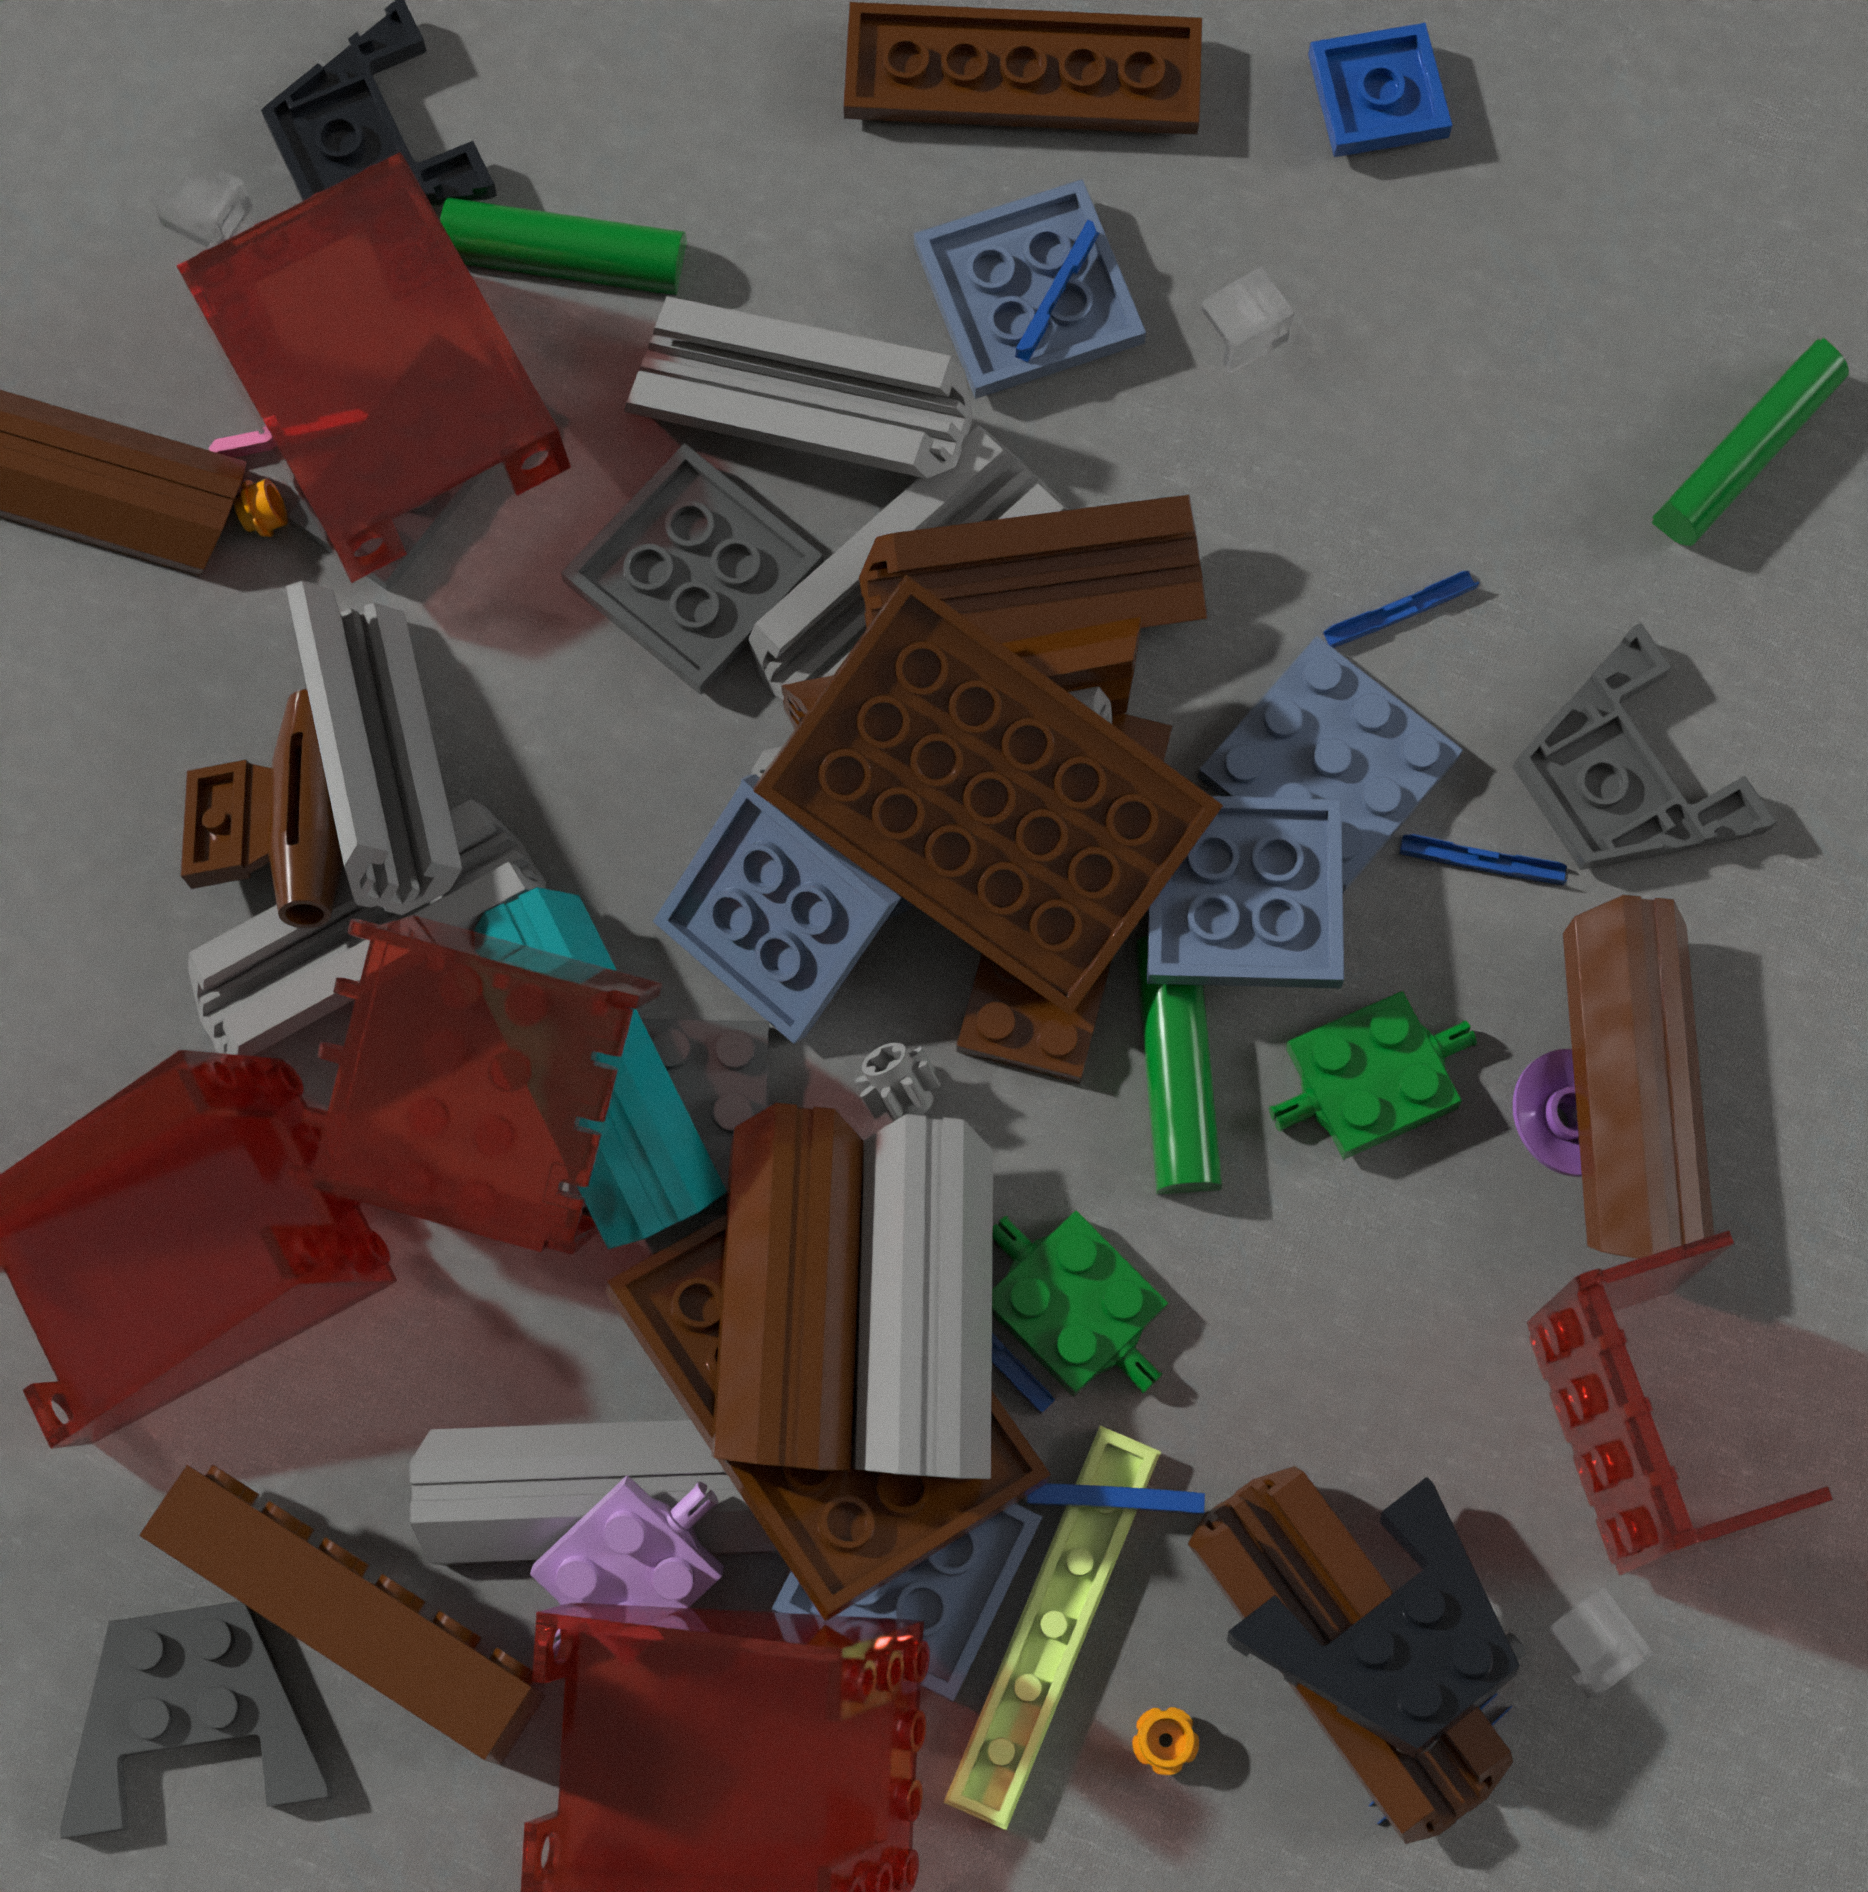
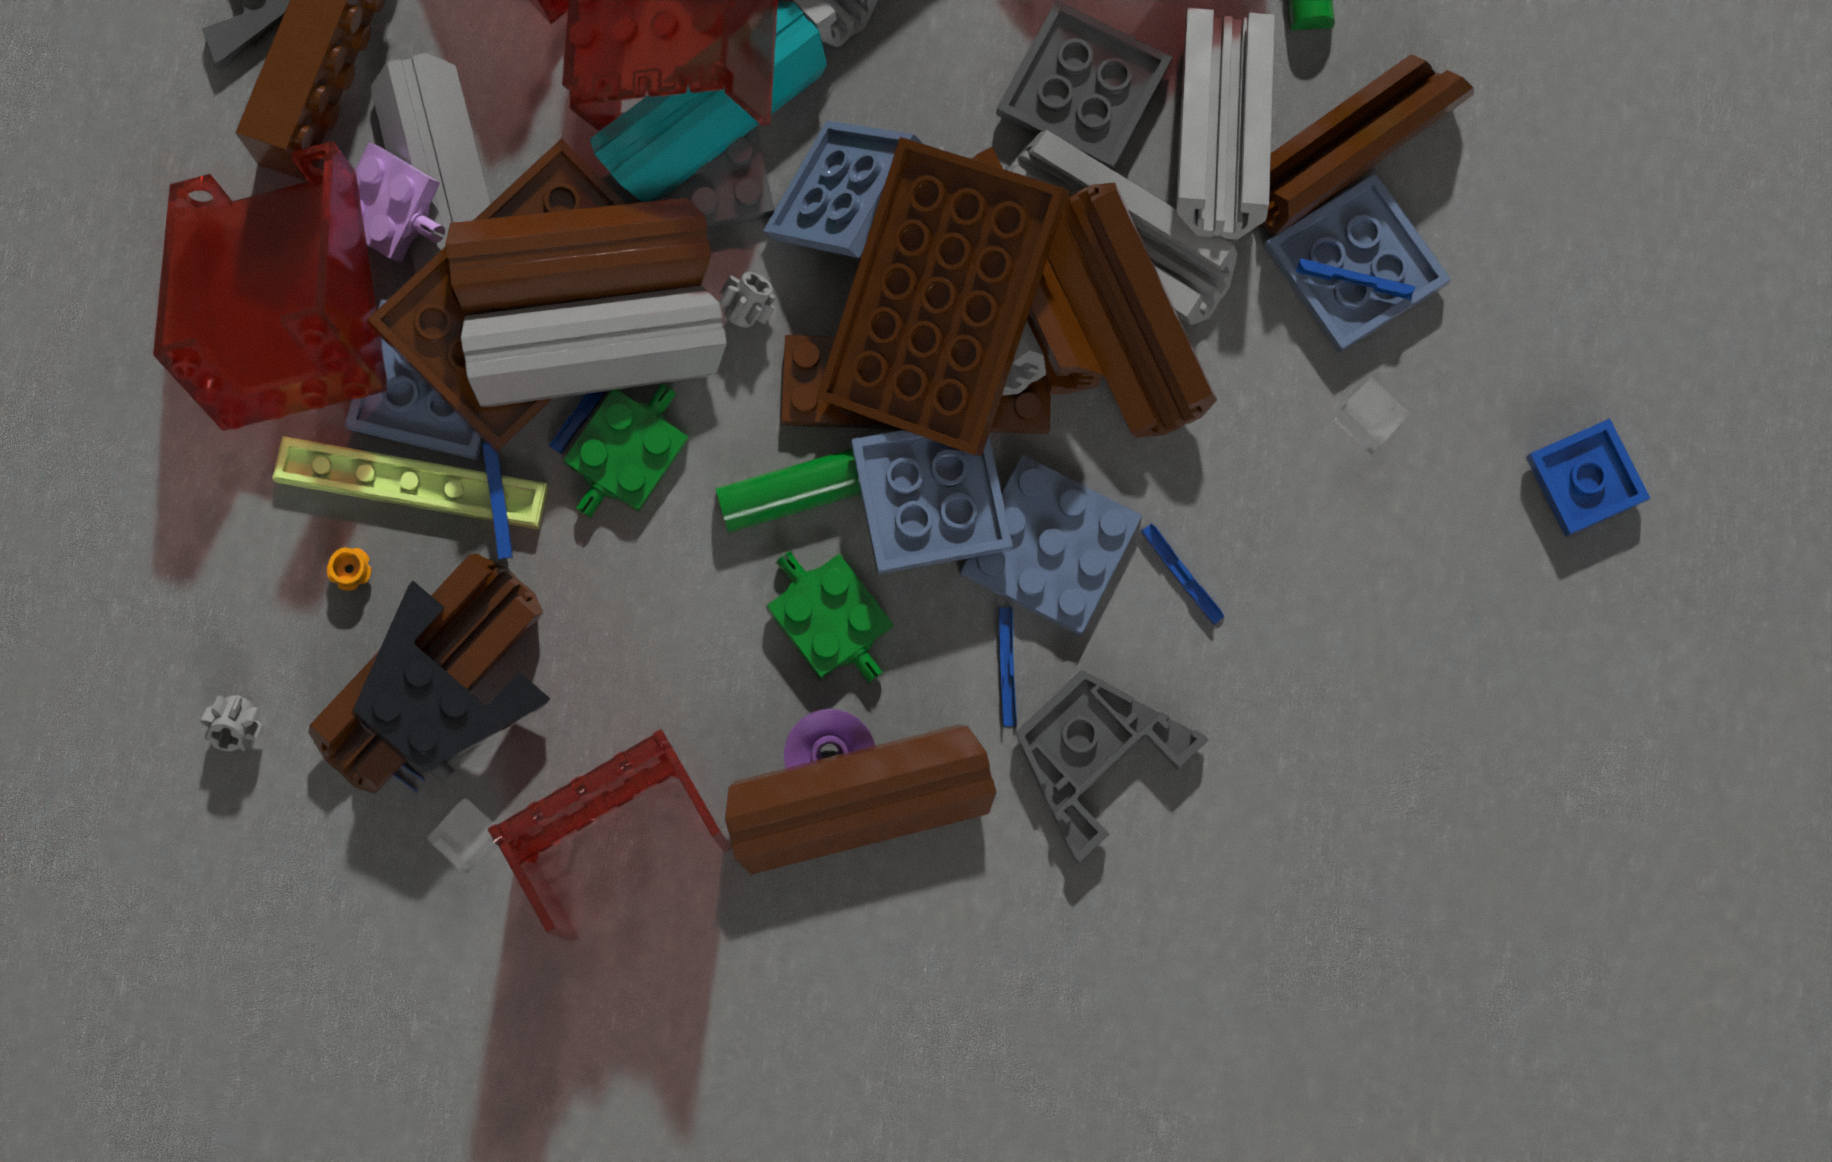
camera: 75 degrees right, 5 degrees up
(856, 230) = (1358, 137): none -> reddish brown piece
(1023, 68) = (1531, 223): reddish brown plate -> none
(1752, 444) = (1375, 799): green brick -> none

